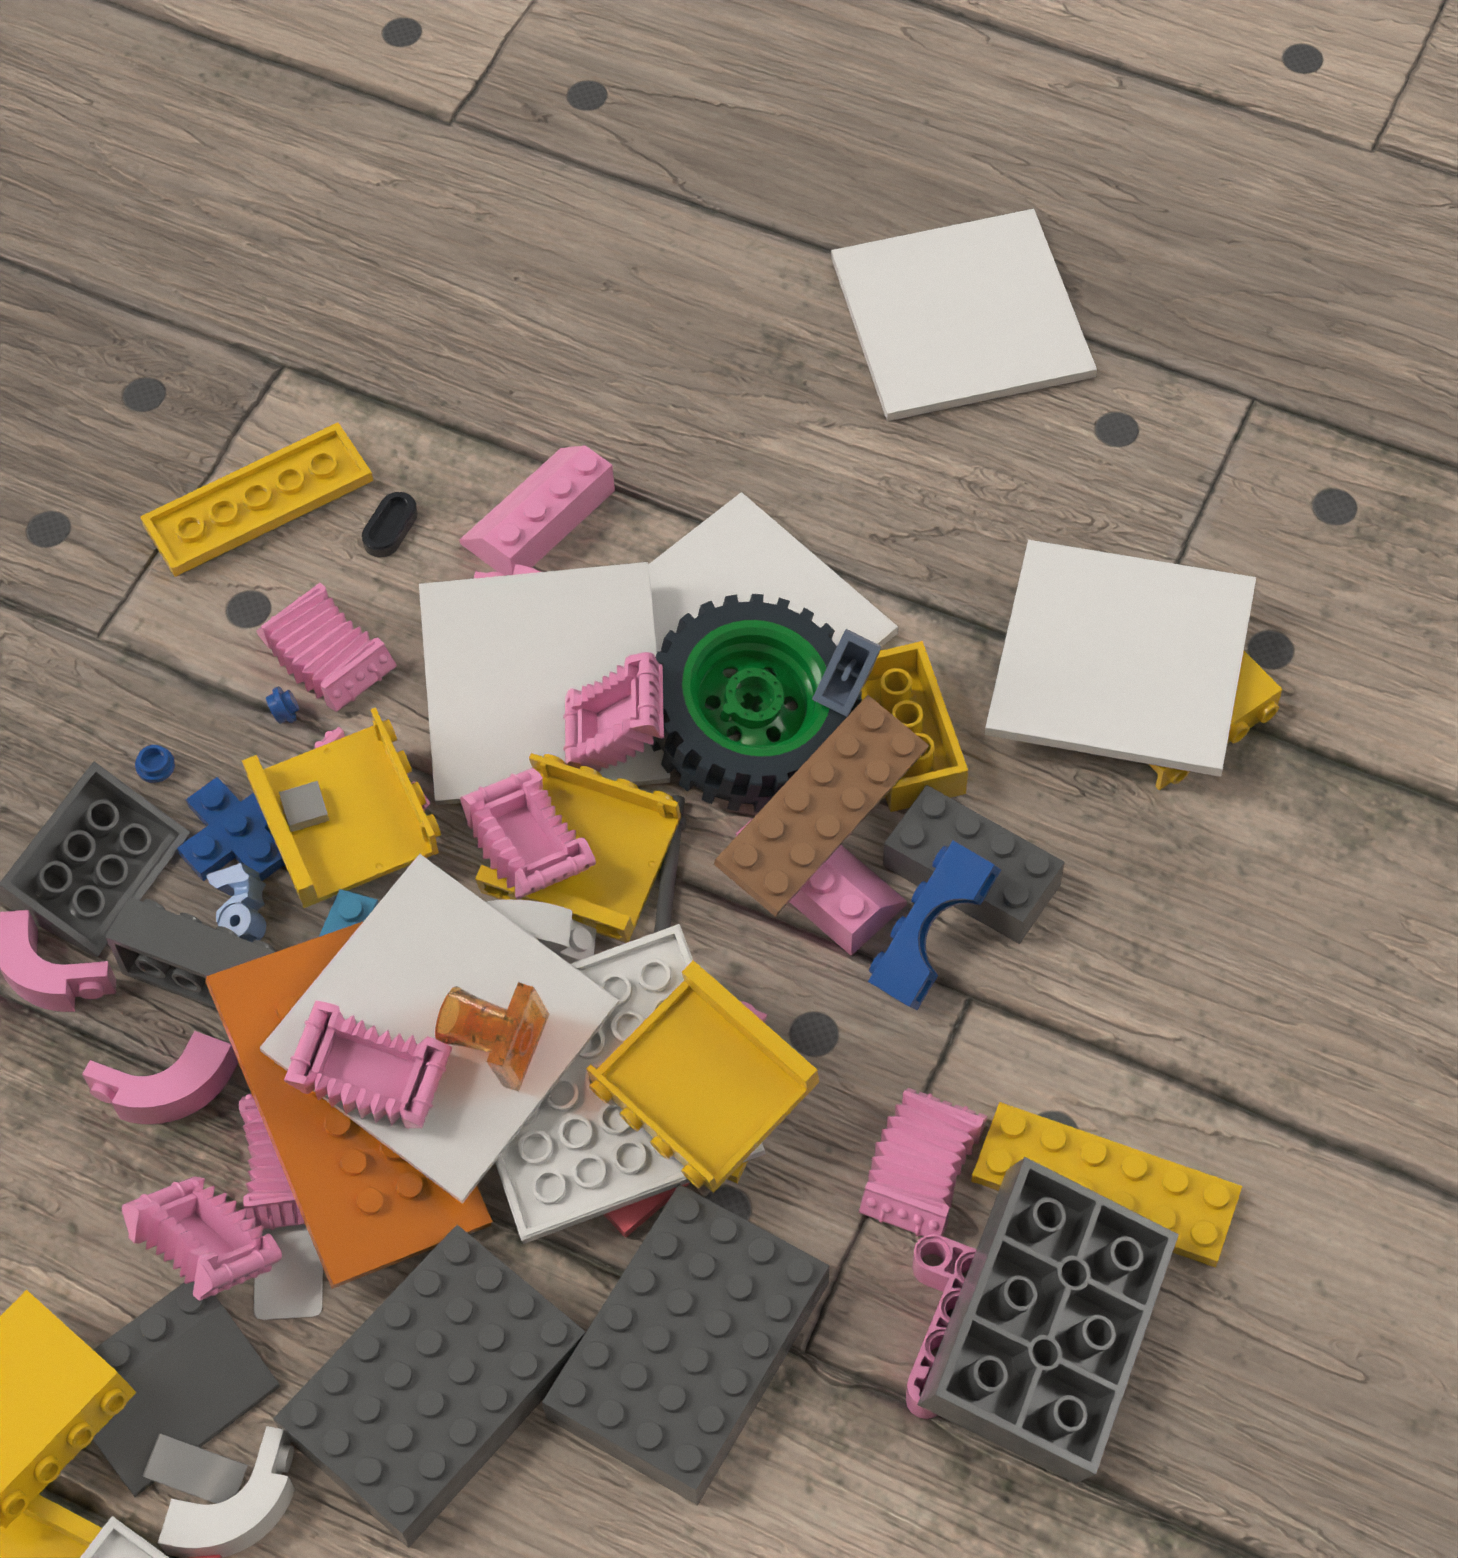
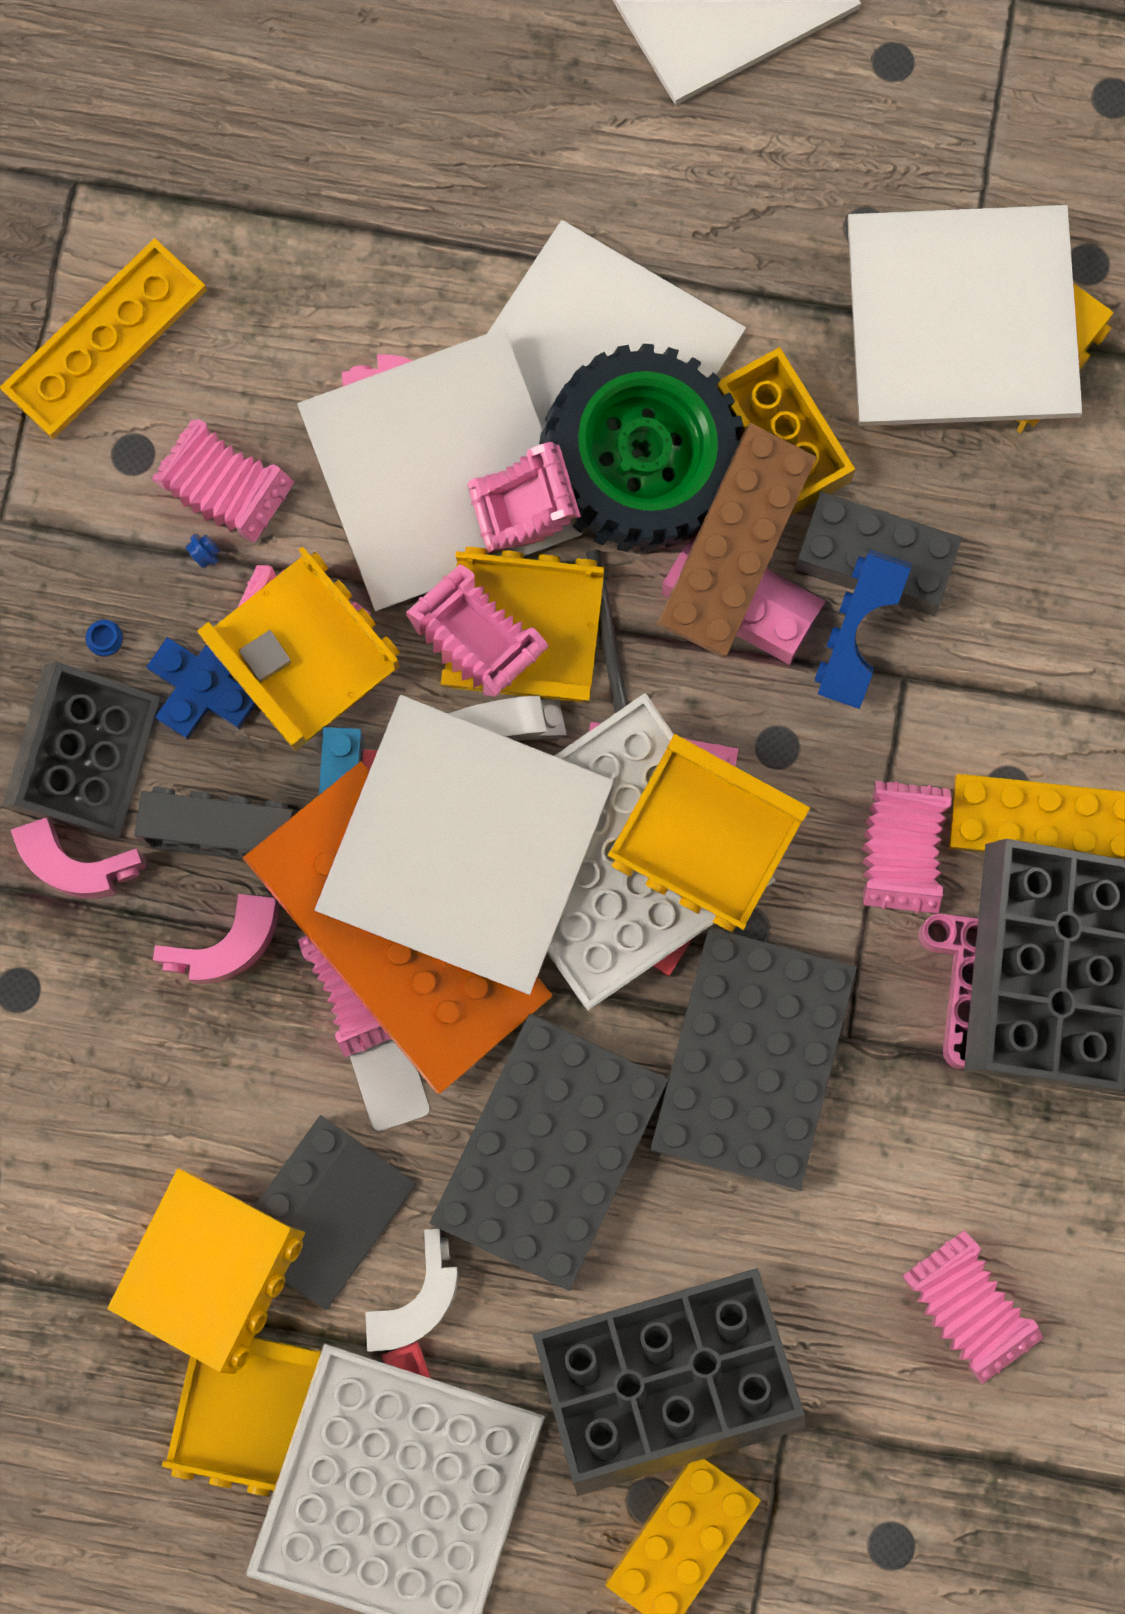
camera: 15 degrees left, 20 degrees up
(194, 1470) = (373, 1280): light grey slope -> none
(201, 1235) = (313, 1080): bright pink piece -> none
(241, 910) = (238, 772): medium blue leg -> none
(367, 1068) = (418, 907): bright pink piece -> none
(389, 524) = (238, 333): black tile -> none
(504, 1033) = (517, 845): clear orange plant -> none
(542, 510) = (376, 285): bright pink slope -> none
(847, 672) = (727, 408): sand blue slope -> none

